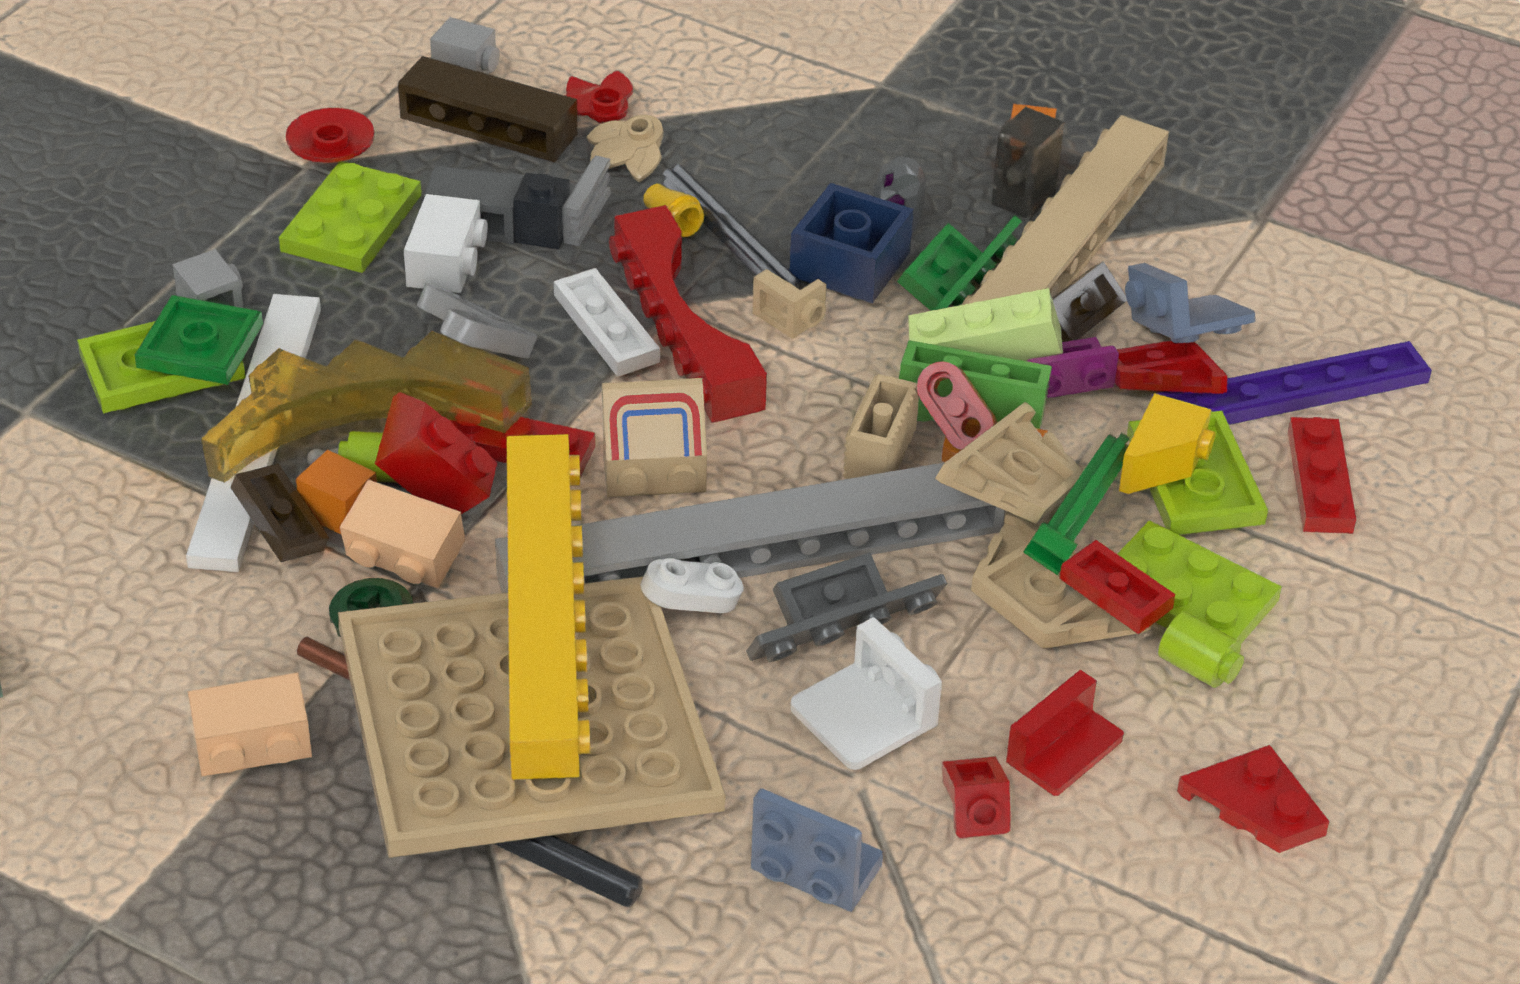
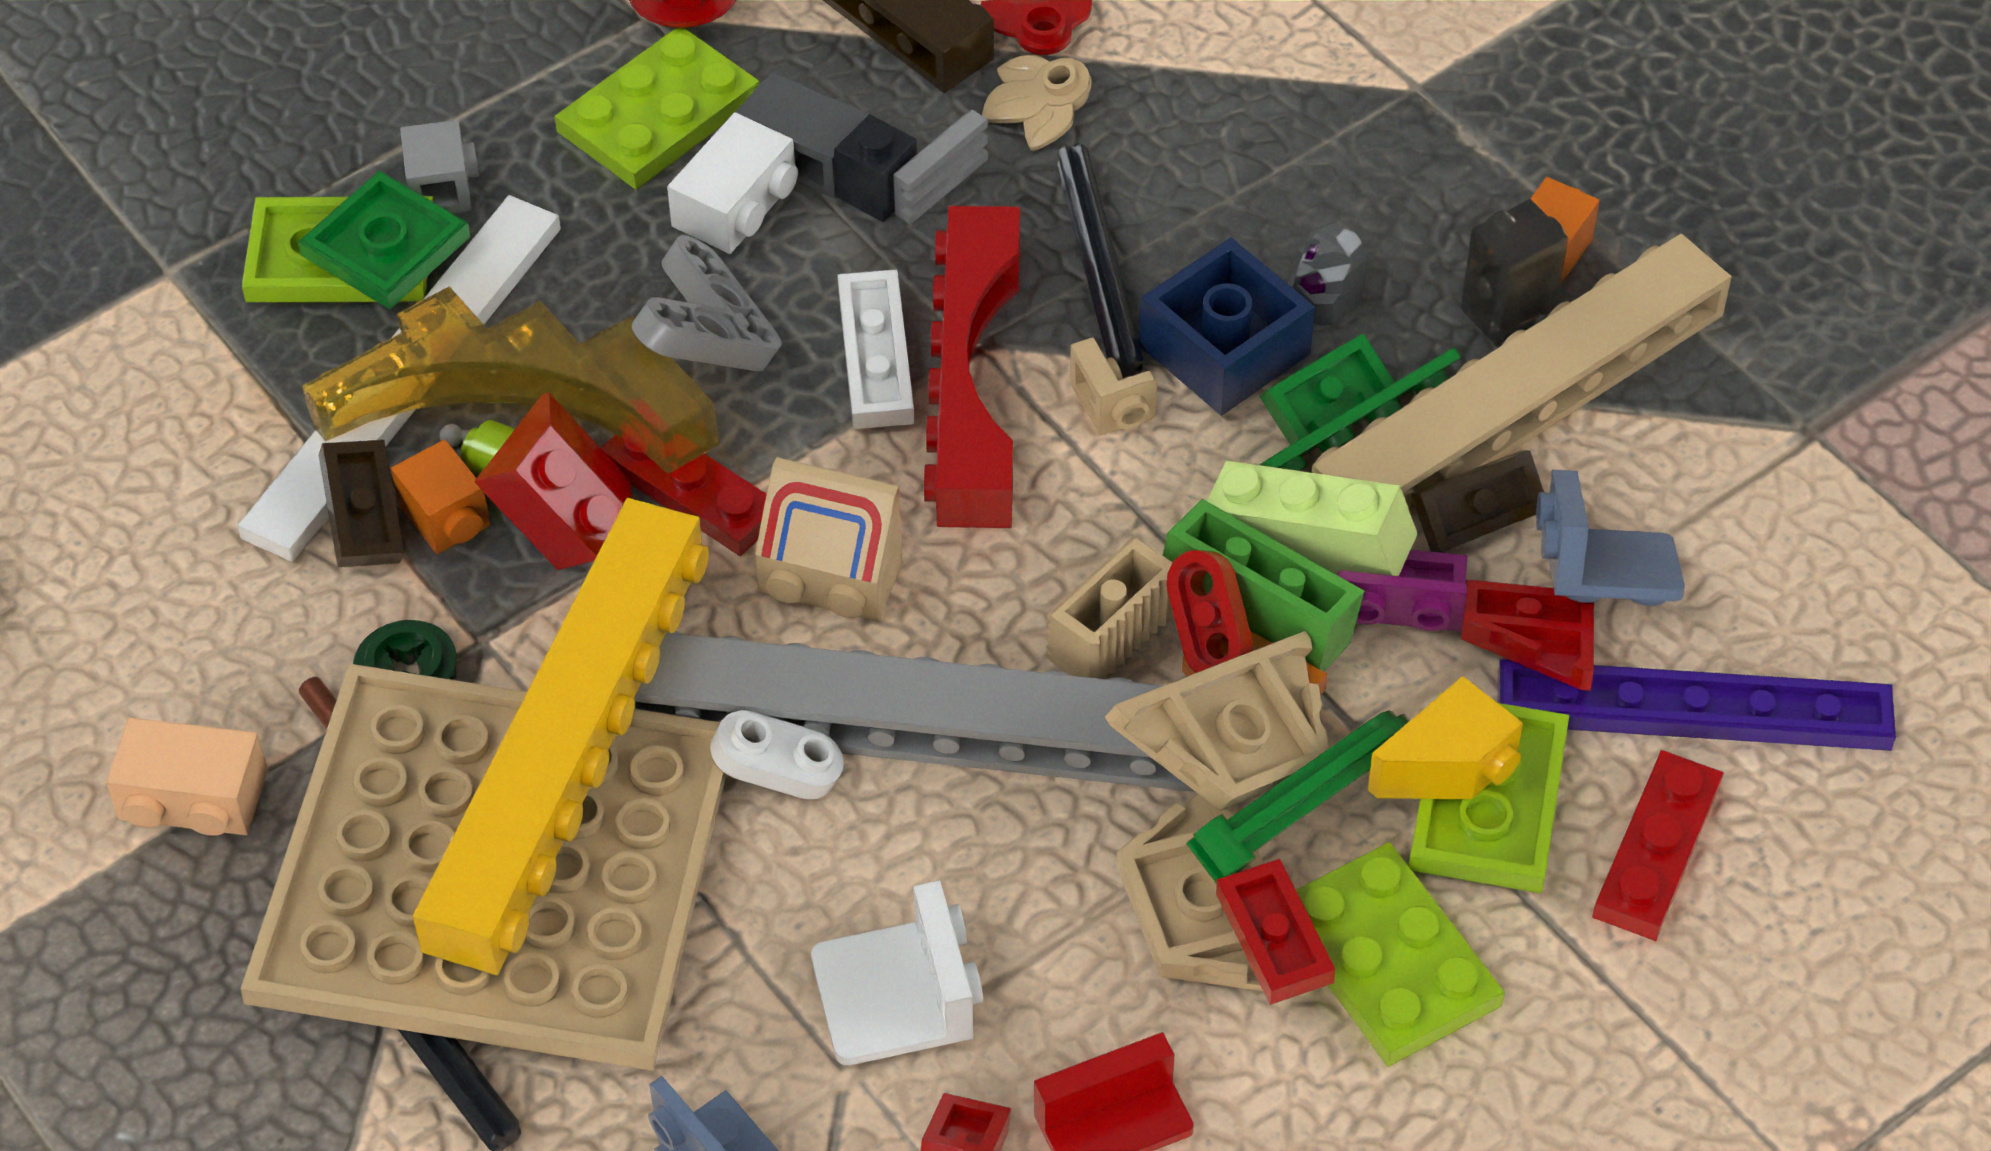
camera: 25 degrees right, 10 degrees up
(402, 534) = (476, 578): light nougat brick -> none
(683, 207) = (1044, 212): yellow cone -> none
(837, 598) = (937, 828): dark grey bracket -> none
(1201, 650) = (1345, 1049): lime brick -> none

